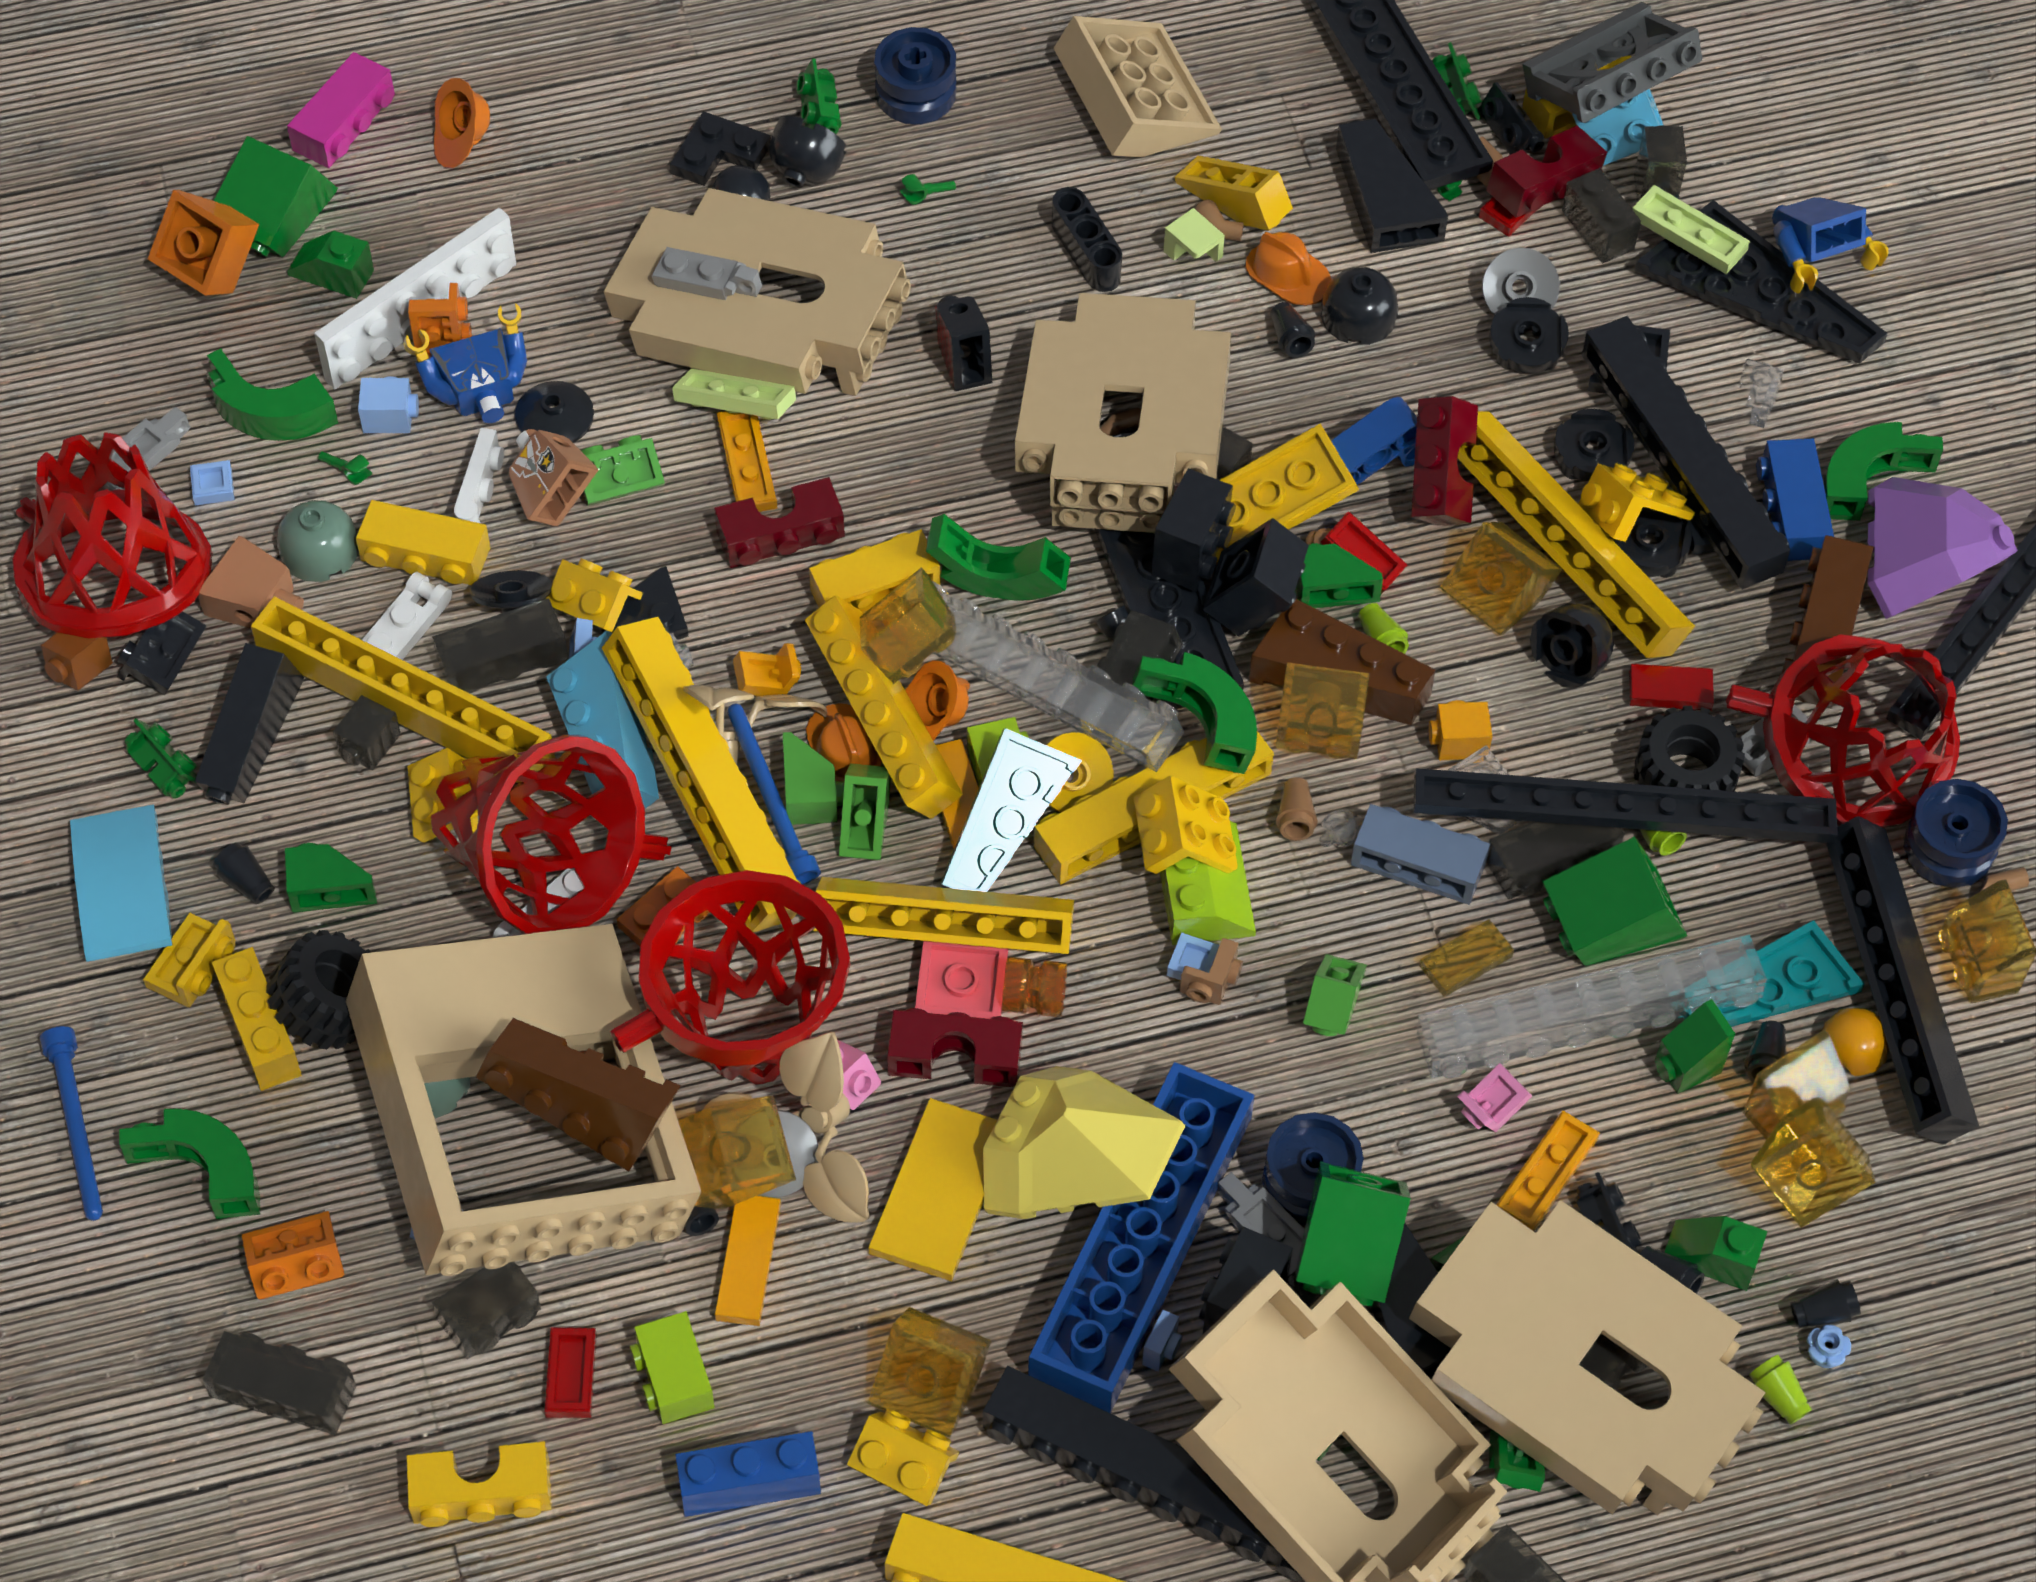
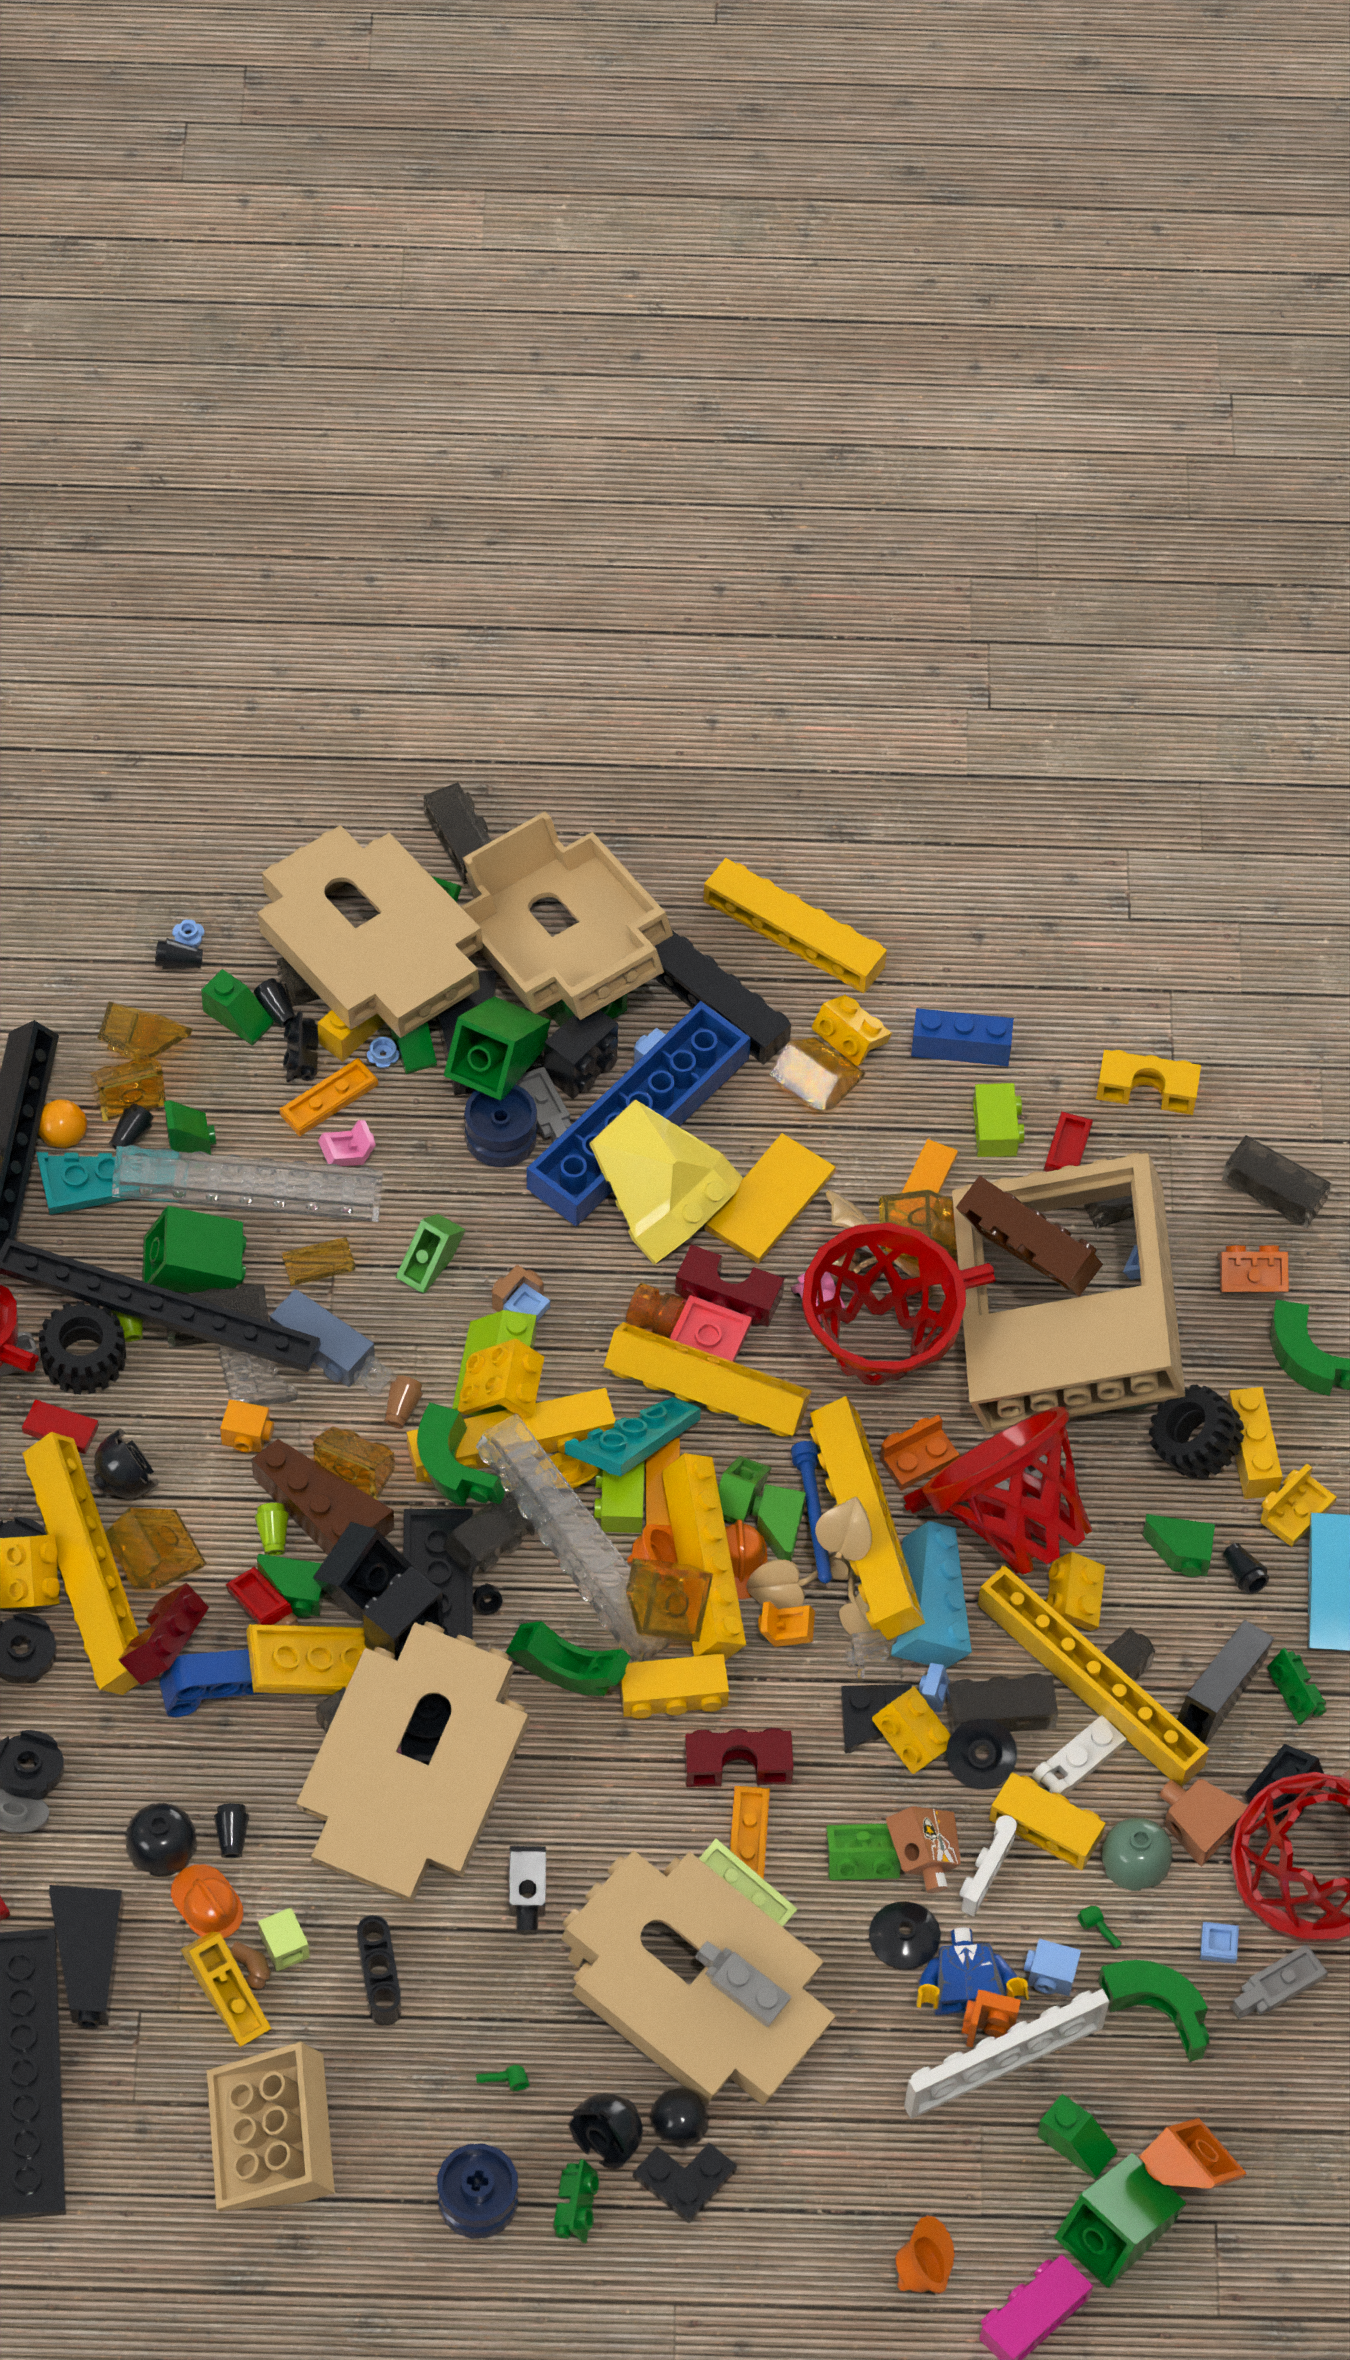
camera: 165 degrees left, 0 degrees up
(1781, 1388) = (236, 915): lime cone -> none

